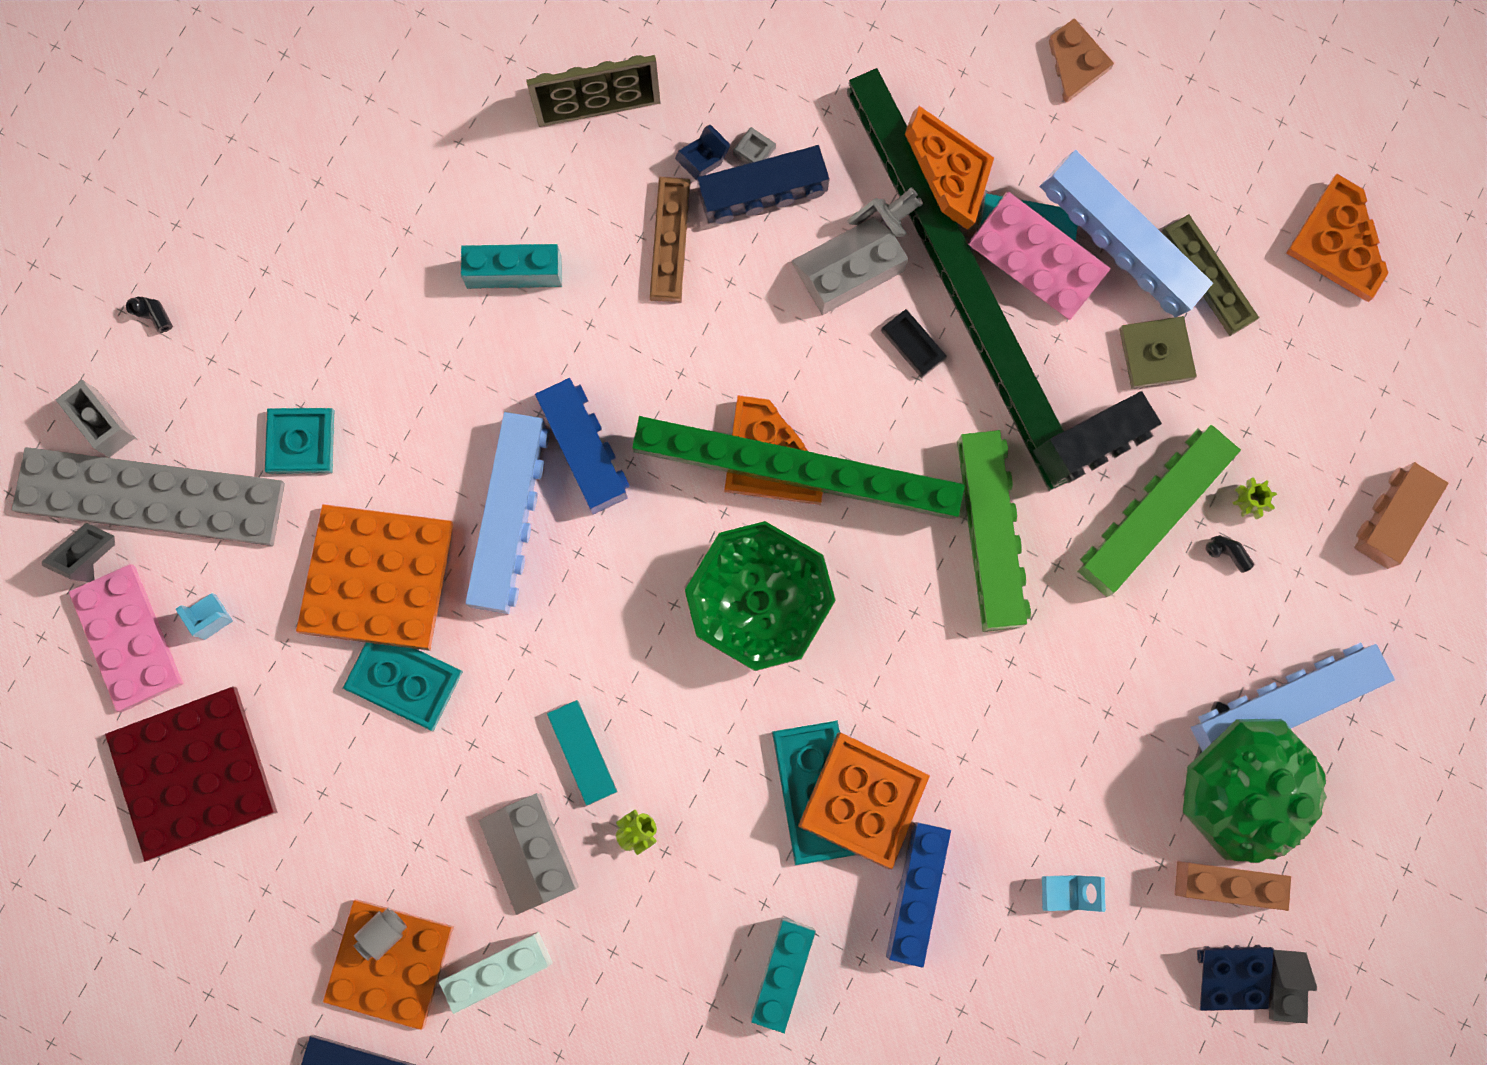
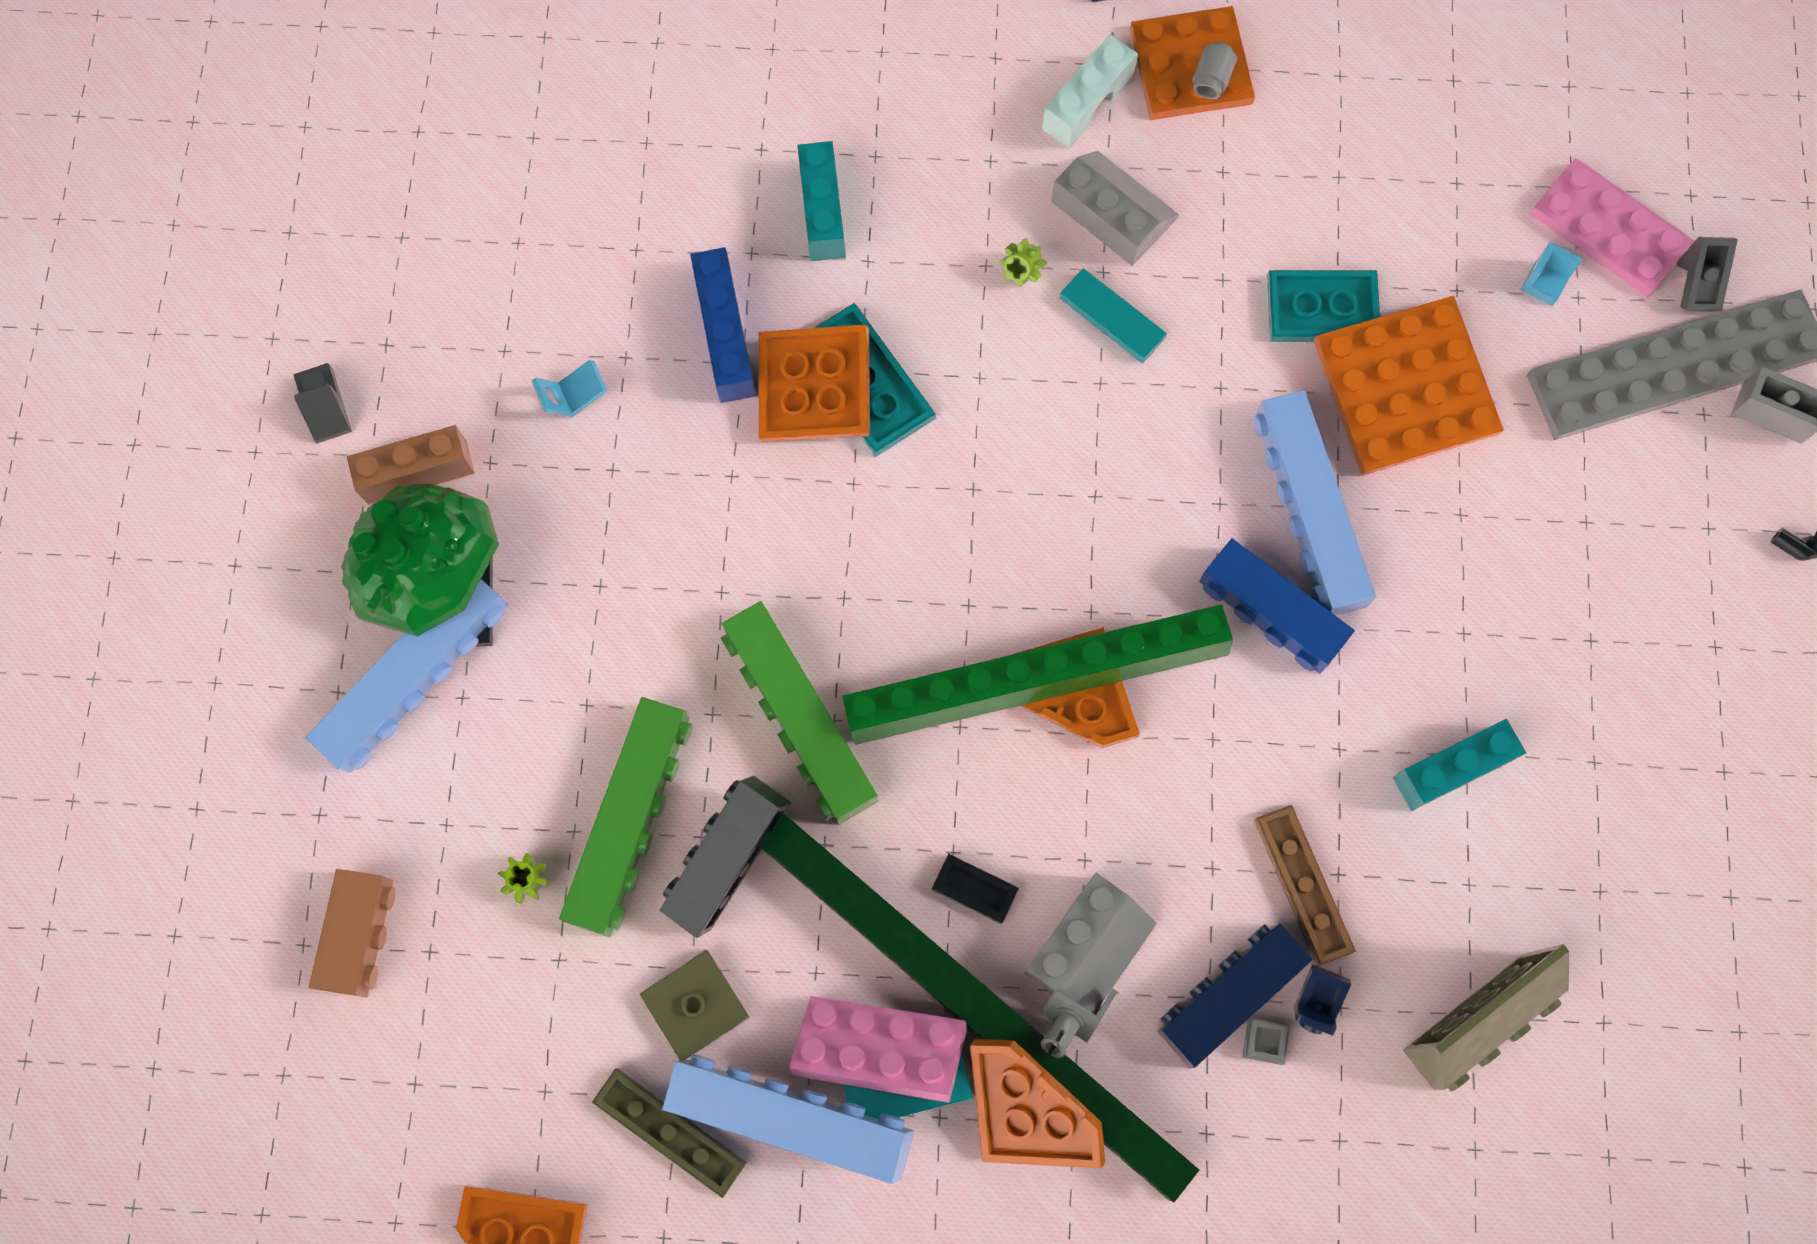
camera: 160 degrees right, 5 degrees down
(190, 773) = (1471, 139): dark red plate -> none
(299, 440) = (1566, 485): teal tile -> none
(760, 596) = (1012, 518): green rock -> none
(1232, 548) = (527, 811): black arm -> none
(1235, 977) = (379, 384): dark blue hinge -> none

